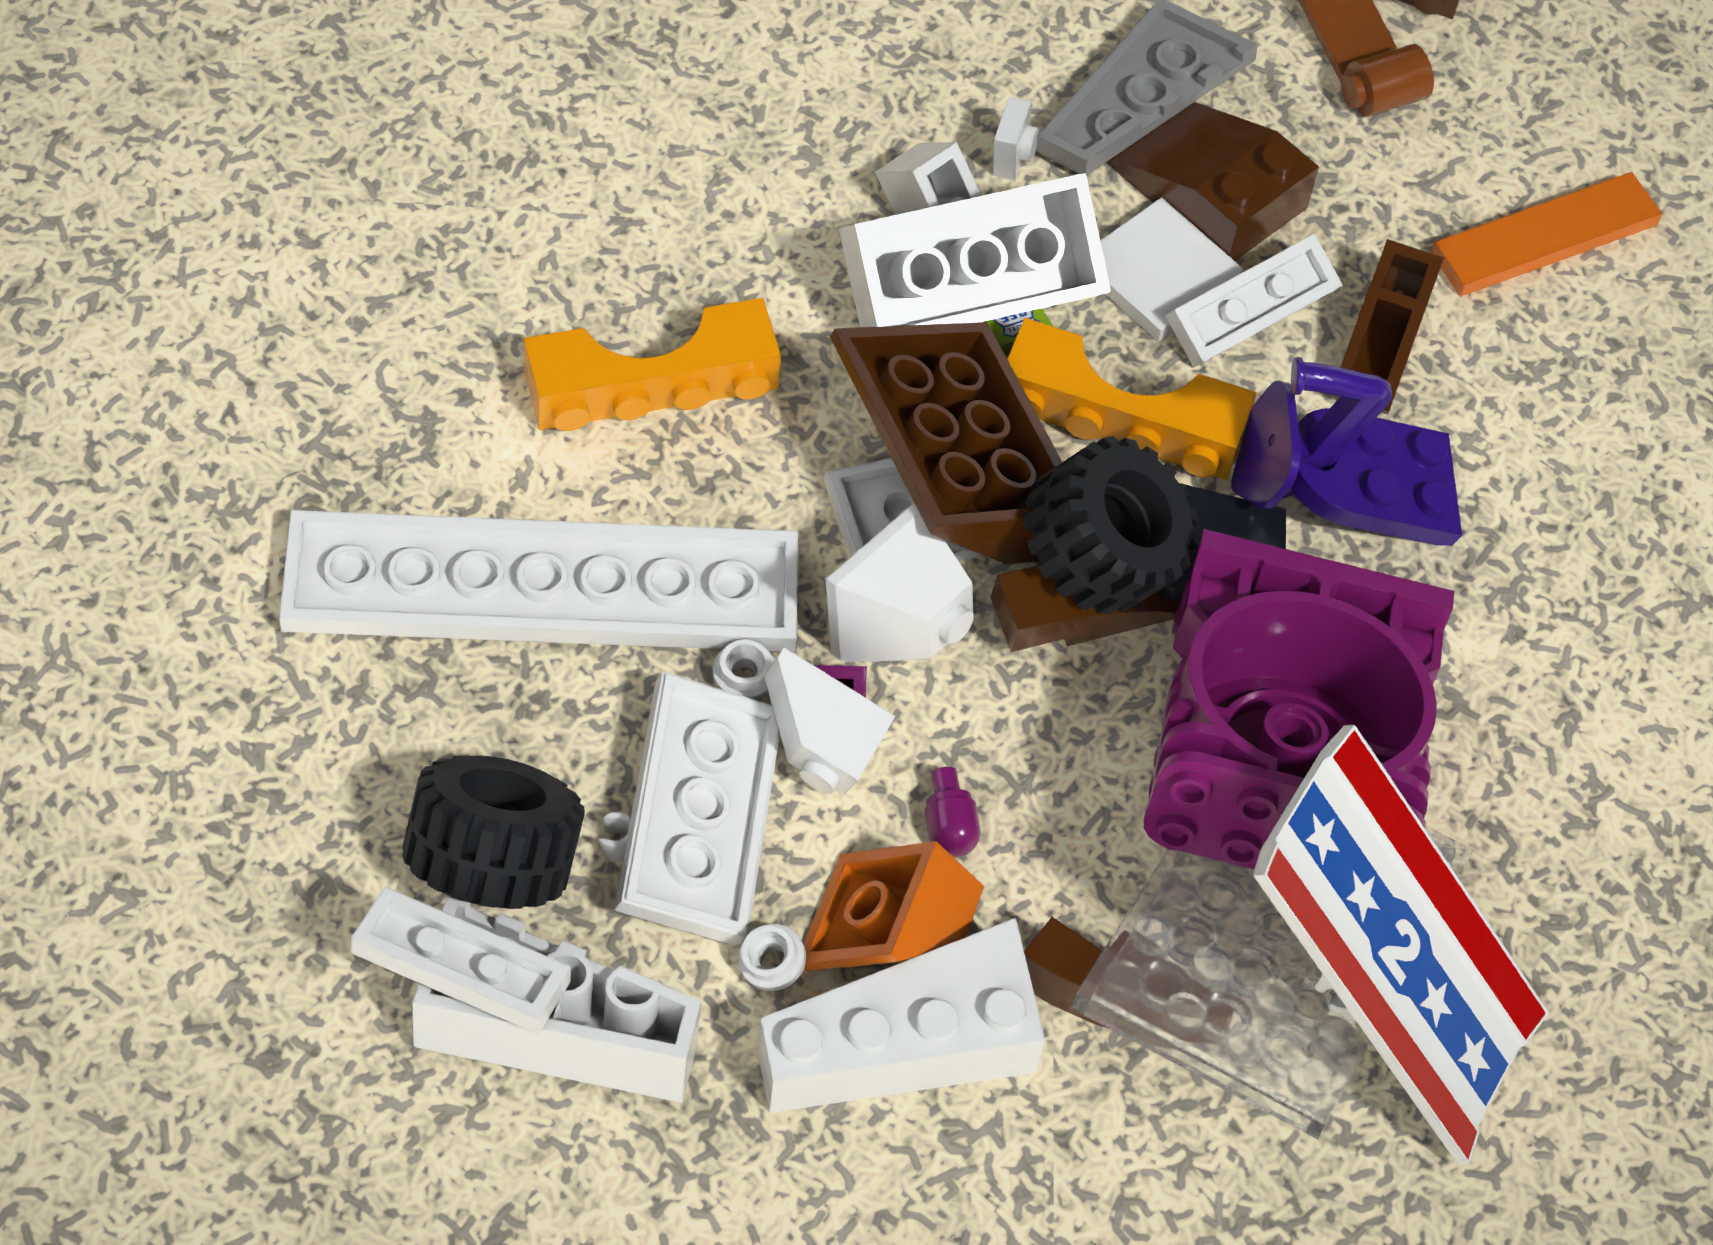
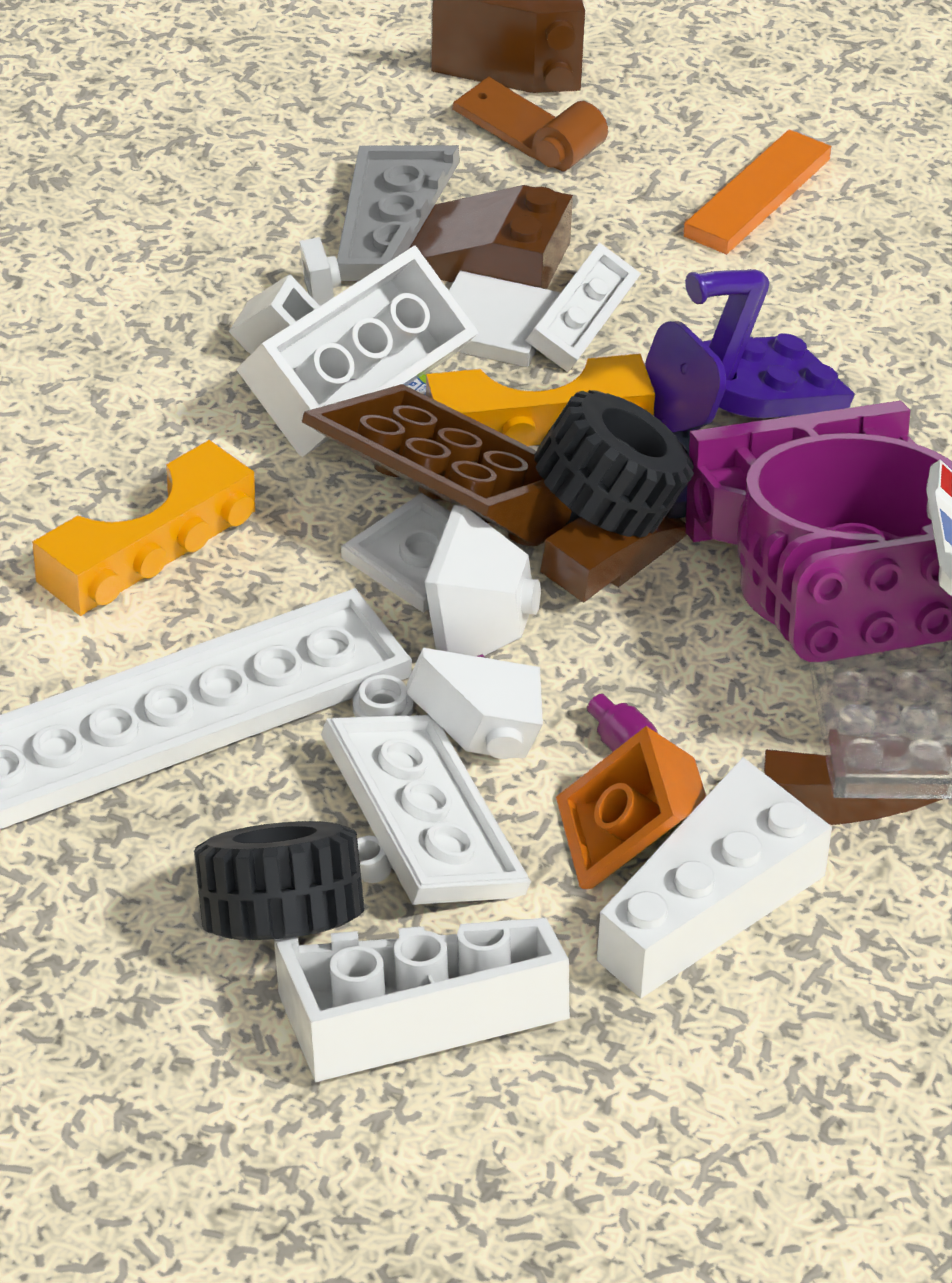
camera: 25 degrees left, 15 degrees down
(461, 960) = (334, 967): white plate -> none
(762, 942) = (556, 870): white plate -> none
(1392, 313) = (681, 250): reddish brown slope -> none

